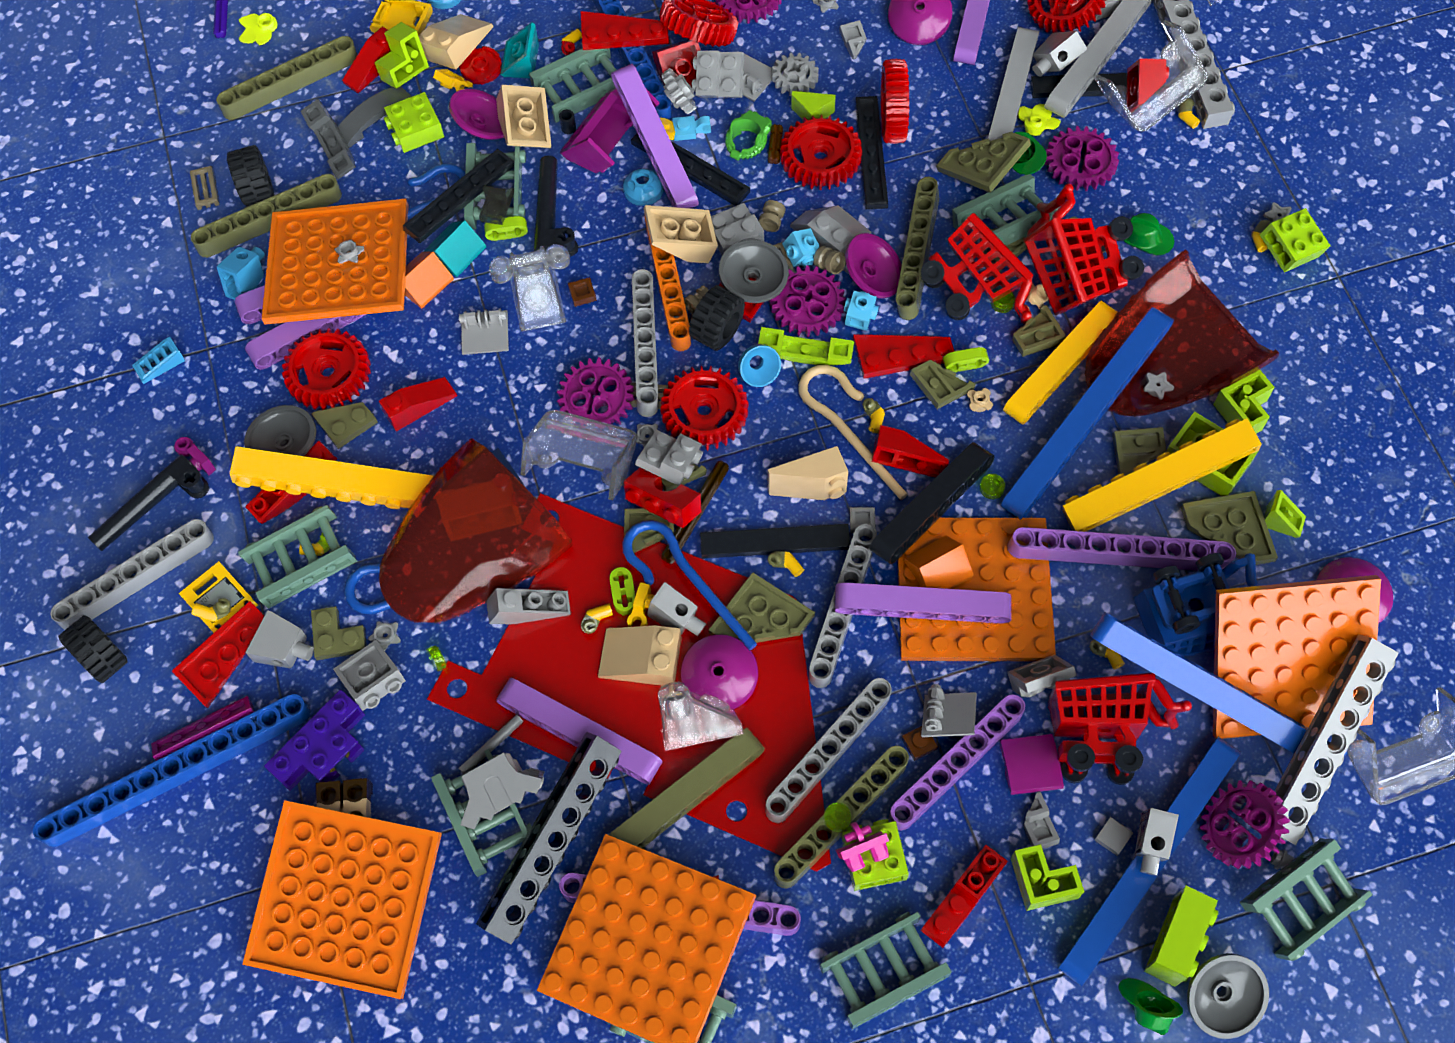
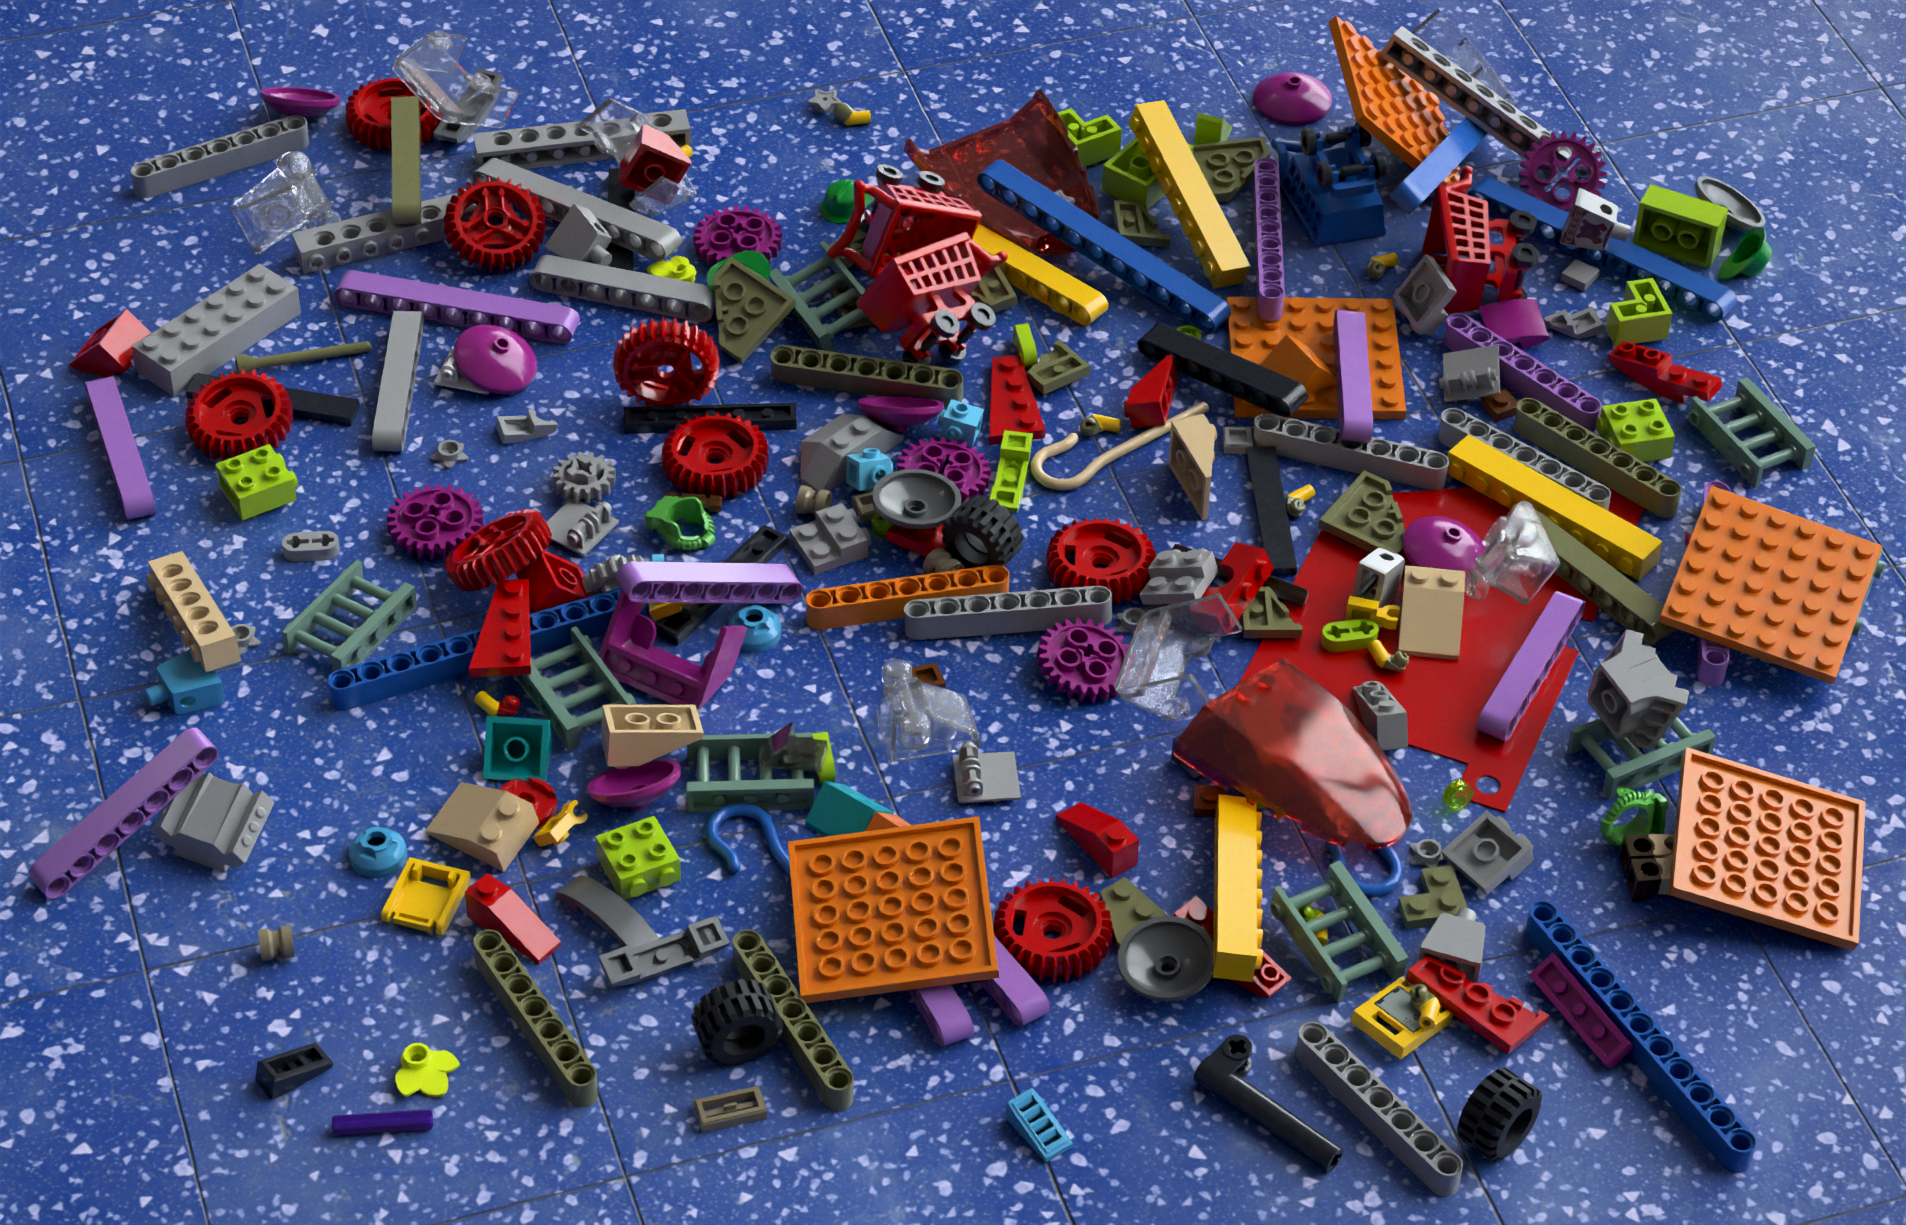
camera: 95 degrees left, 20 degrees down
(198, 459) = (1182, 1071): magenta plate -> none
(241, 271) = (899, 1029): dark azure torso -> none
(319, 744) = (1585, 890): dark purple piece -> none
(345, 247) = (882, 879): light grey plate -> none
(389, 788) = (1649, 817): none -> bright green piece
(405, 58) = (516, 864): lime brick -> none
(458, 196) = (785, 786): black tile -> none
(491, 744) = (1556, 746): light grey bar -> none
(536, 842) = (1703, 683): brick -> none
(545, 229) = (843, 716): black axle -> none
(567, 121) = (644, 694): black hinge -> none
(682, 232) = (851, 562): tan slope -> none
(686, 568) = (1323, 569): blue piece -> none
(718, 74) = (586, 536): light grey plate -> none
(762, 777) = (1593, 526): none -> yellow brick
(766, 371) = (1038, 512): dark azure piece -> none
(808, 104) = (642, 463): lime slope -> none
(829, 259) = (891, 442): dark tan wheel -> none
(837, 817) = (1606, 445): clear neon green tile -> none
(874, 843) = (1641, 416): hips -> none
(980, 406) = (1077, 340): tan plate -> none
(1282, 885) = (1628, 149): sand green fence -> none
(1294, 240) = (870, 83): lime brick -> none

